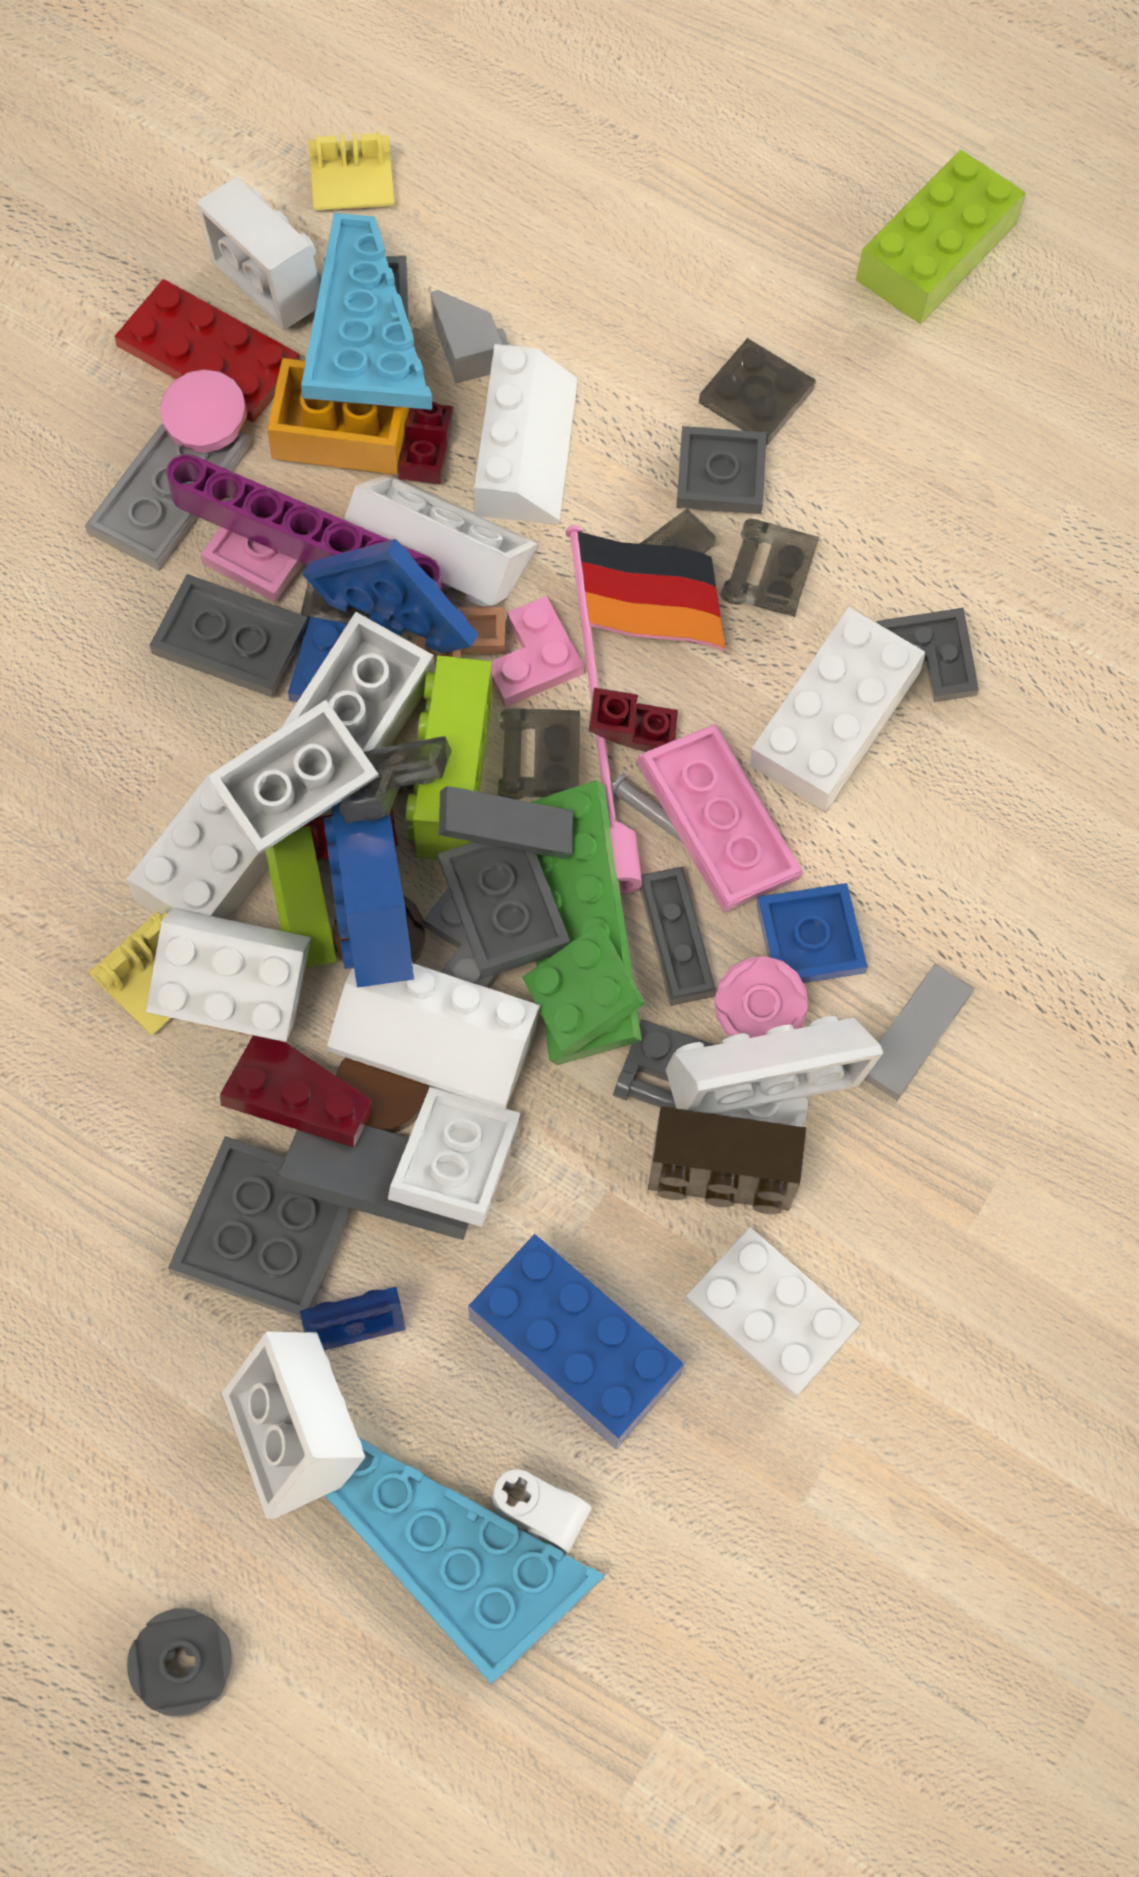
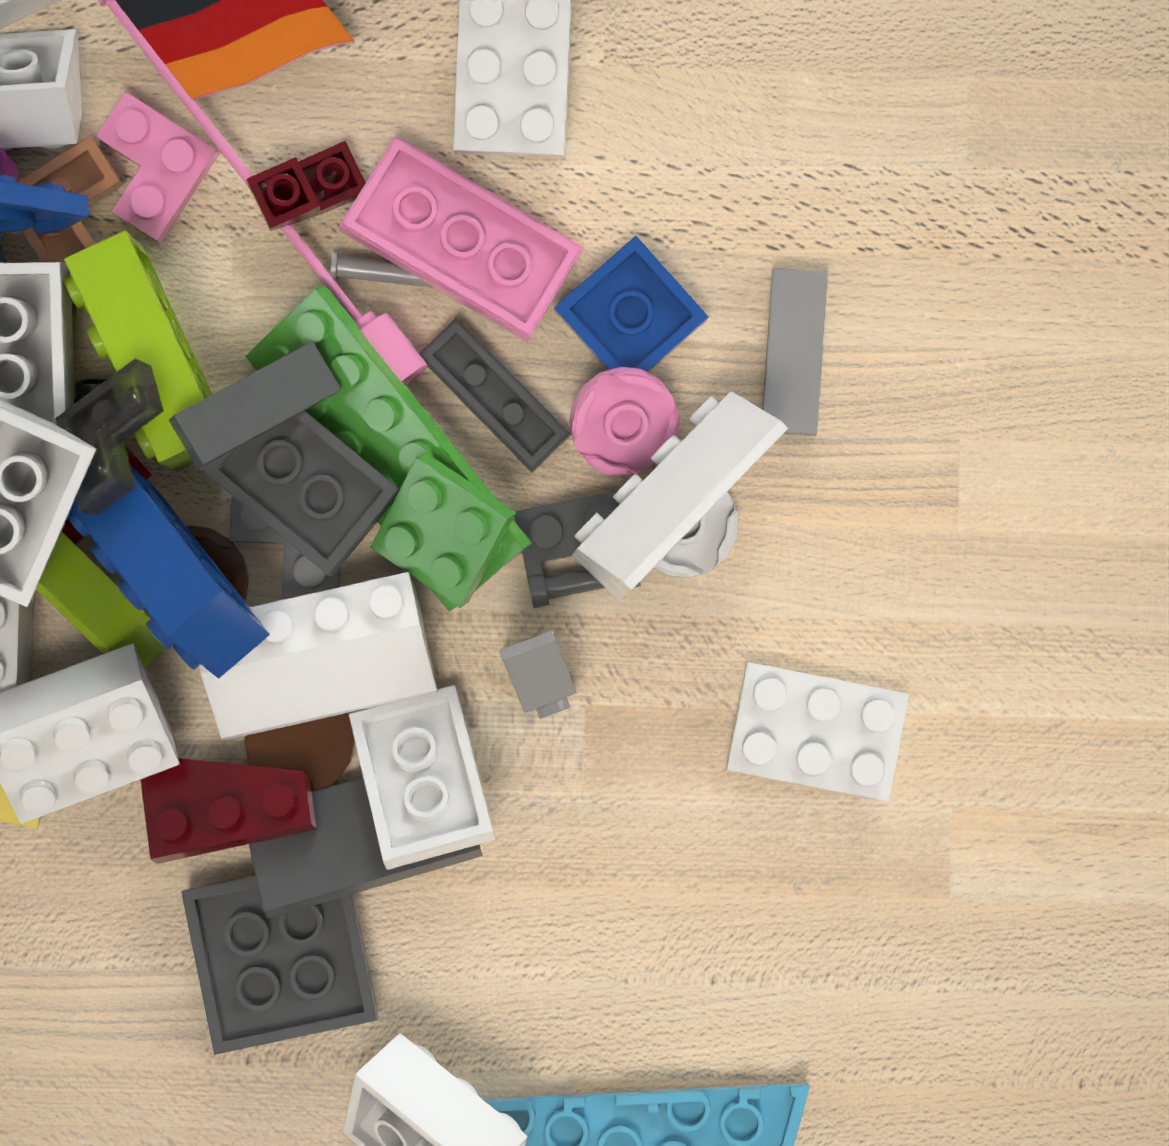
camera: 25 degrees left, 20 degrees up
(355, 1318) = (437, 977): clear blue plate -> none
(549, 1515) = (724, 1060): white piece -> none
(554, 757) = (248, 272): clear smoke plate -> none
(575, 1341) = (649, 884): blue brick -> none
(589, 1133) = (539, 674): none -> light grey slope
(726, 1160) = (691, 619): dark brown brick -> none

